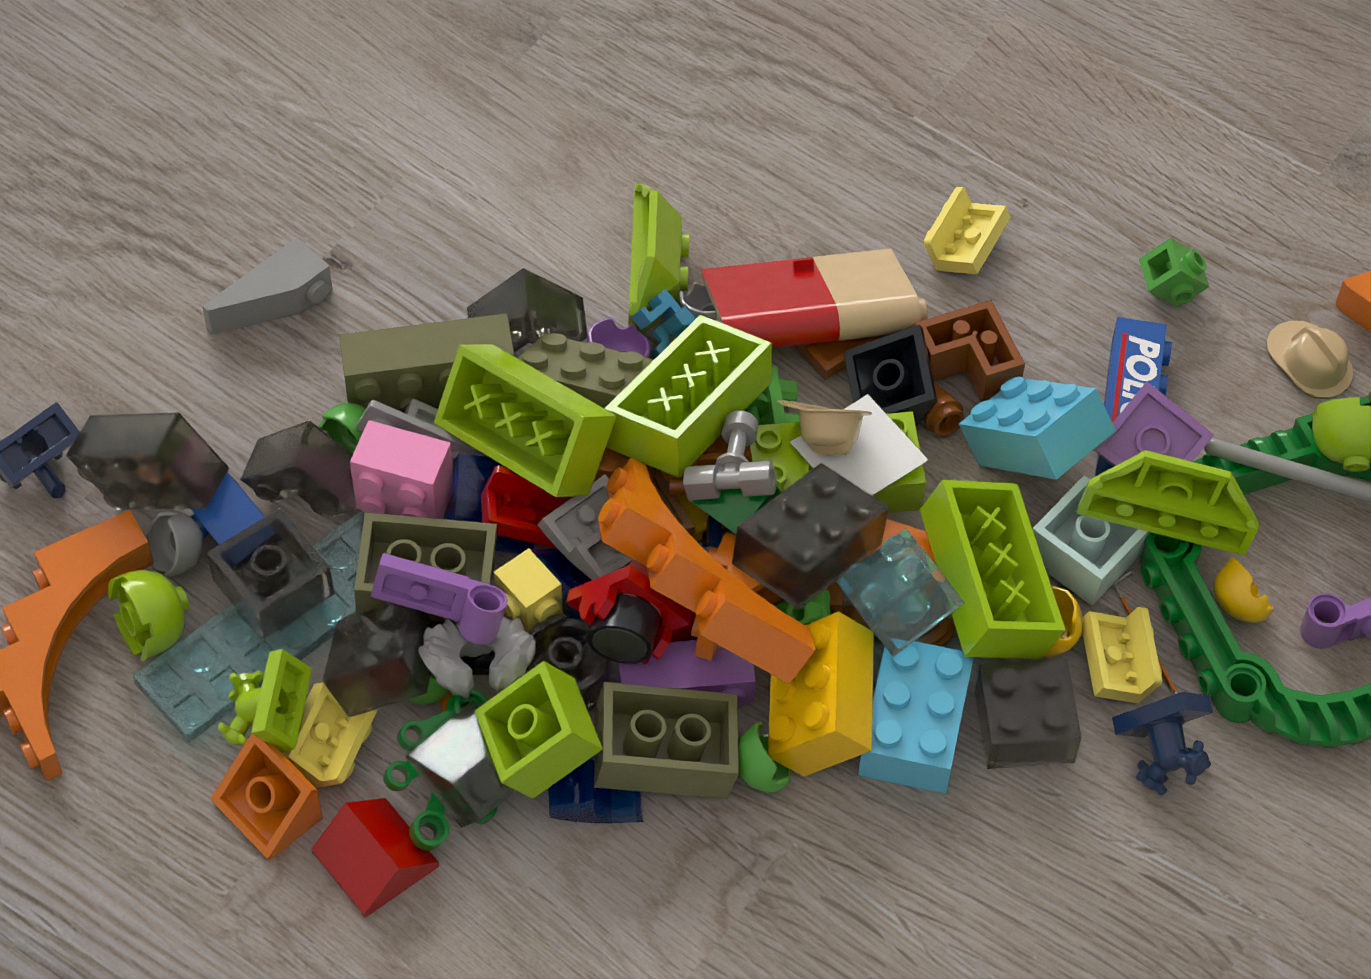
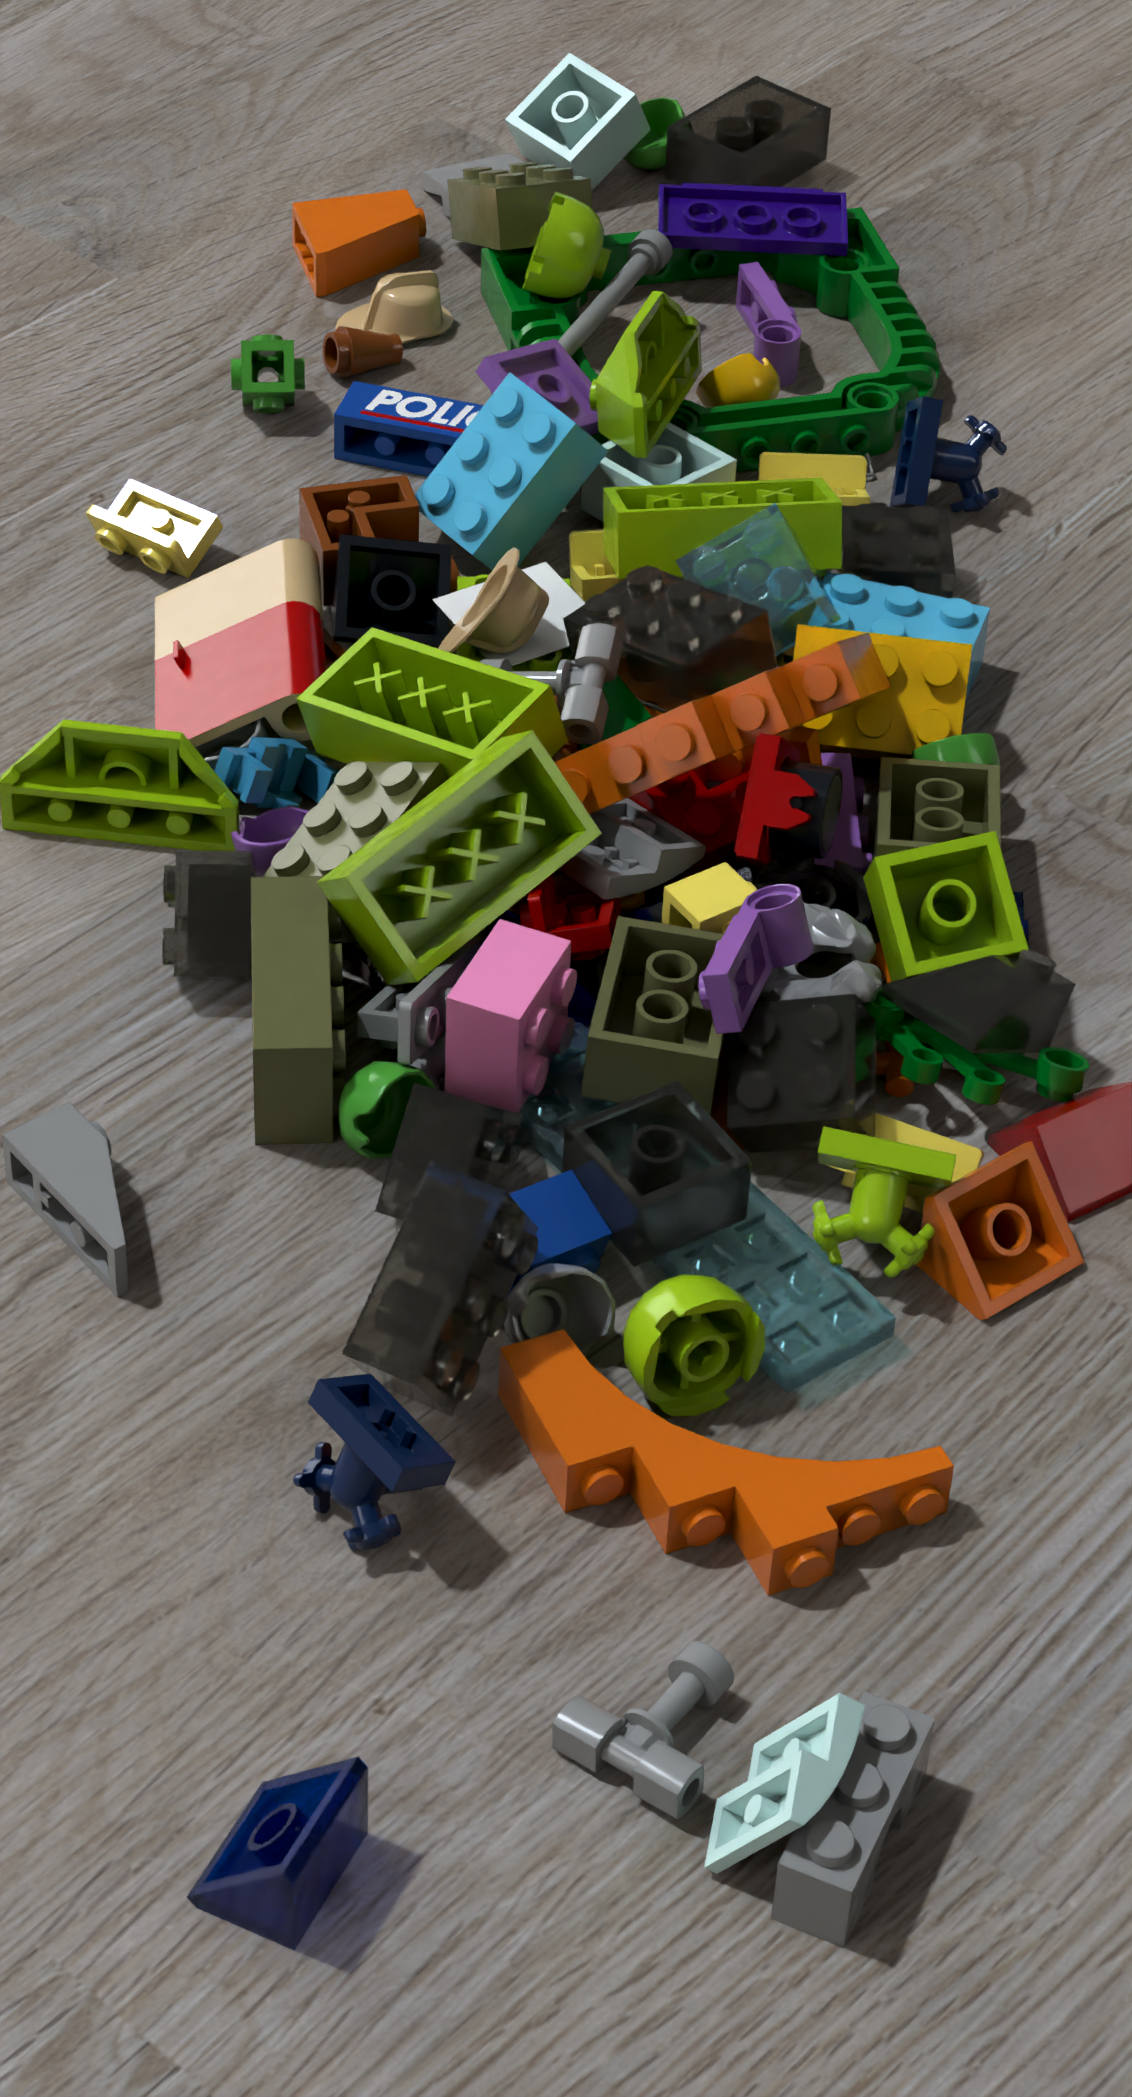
camera: 85 degrees left, 15 degrees down
(1243, 334) = (358, 351): none -> dark orange cone

